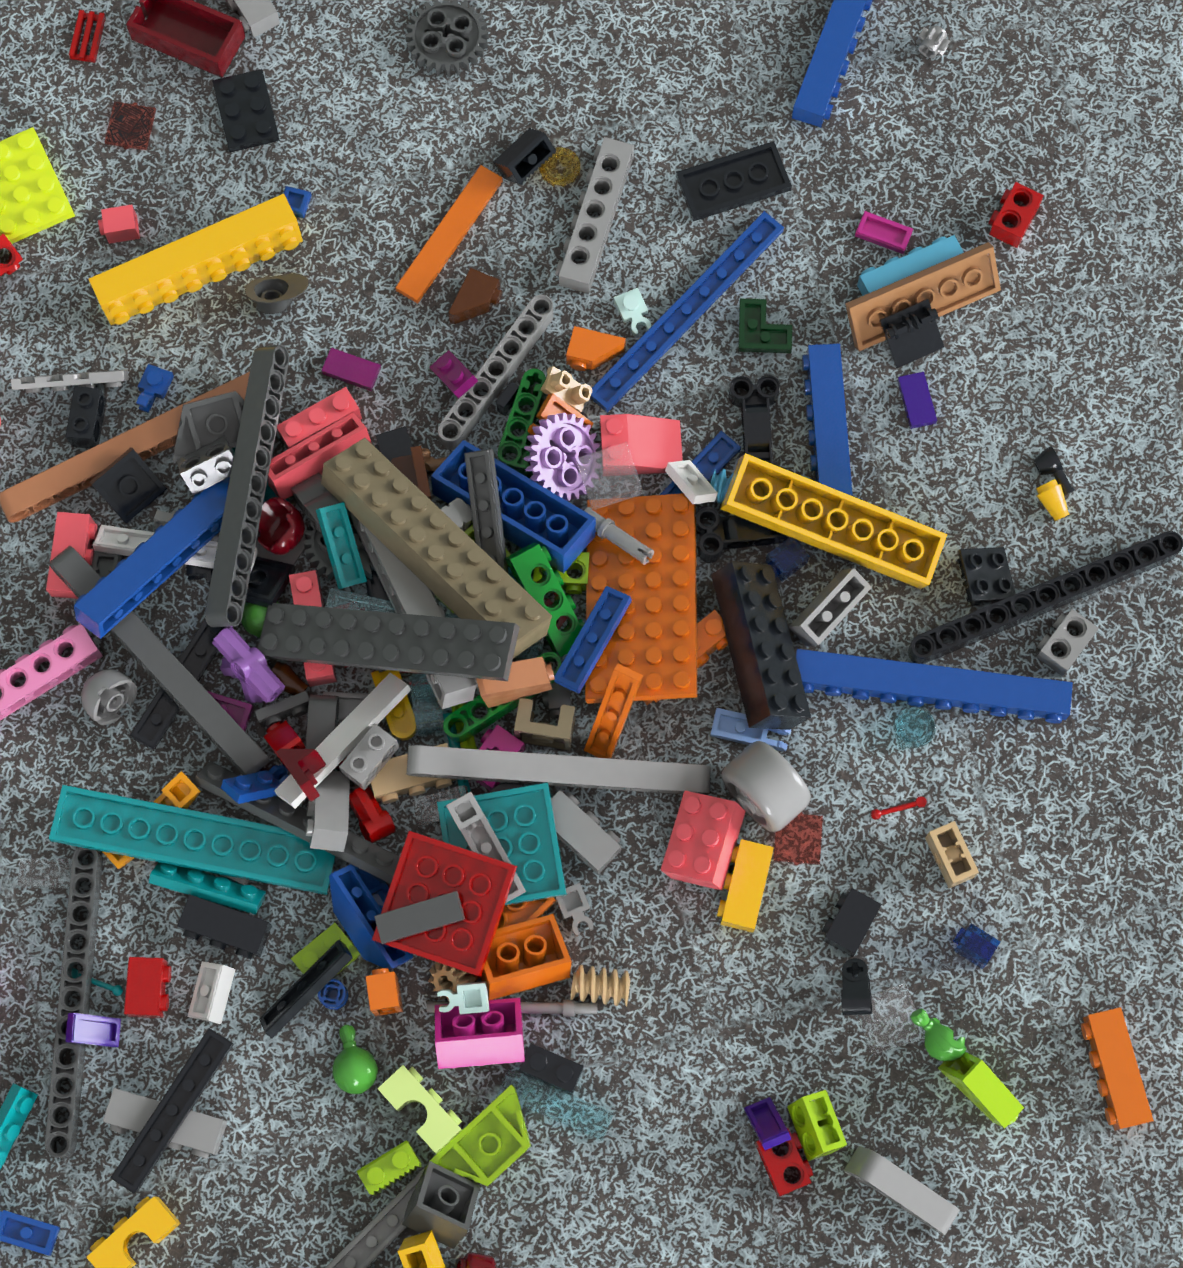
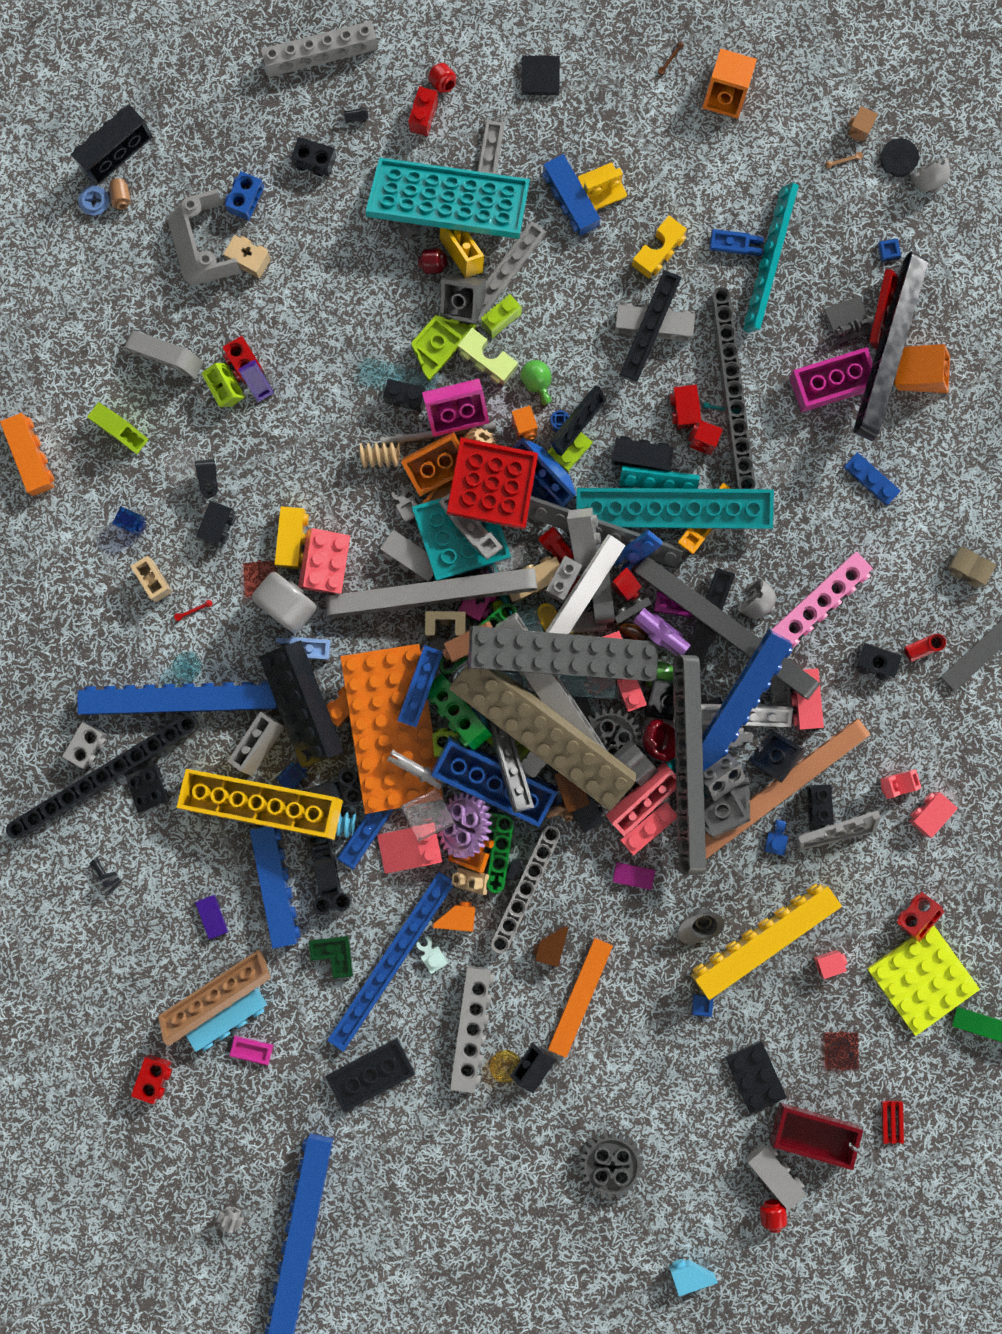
camera: 170 degrees right, 10 degrees up
(93, 1030) = (715, 371): tile -> none
(129, 932) = (704, 437): none -> red brick
(211, 992) = (642, 412): white slope -> none
(302, 766) = (609, 559): dark red slope -> none
(341, 545) = (612, 728): teal plate -> none
(419, 917) = (507, 469): dark grey tile -> none
(453, 374) = (556, 880): magenta plate -> none
(469, 998) = (466, 426): light aqua plate -> none
(613, 712) = (397, 637): orange plate -> none
(691, 482) = (367, 820): white plate -> none
(912, 333) = (220, 967): black hinge -> none
(939, 1038) = (148, 453): bright green hair -> none
(1053, 499) = (104, 853): yellow cone -> none

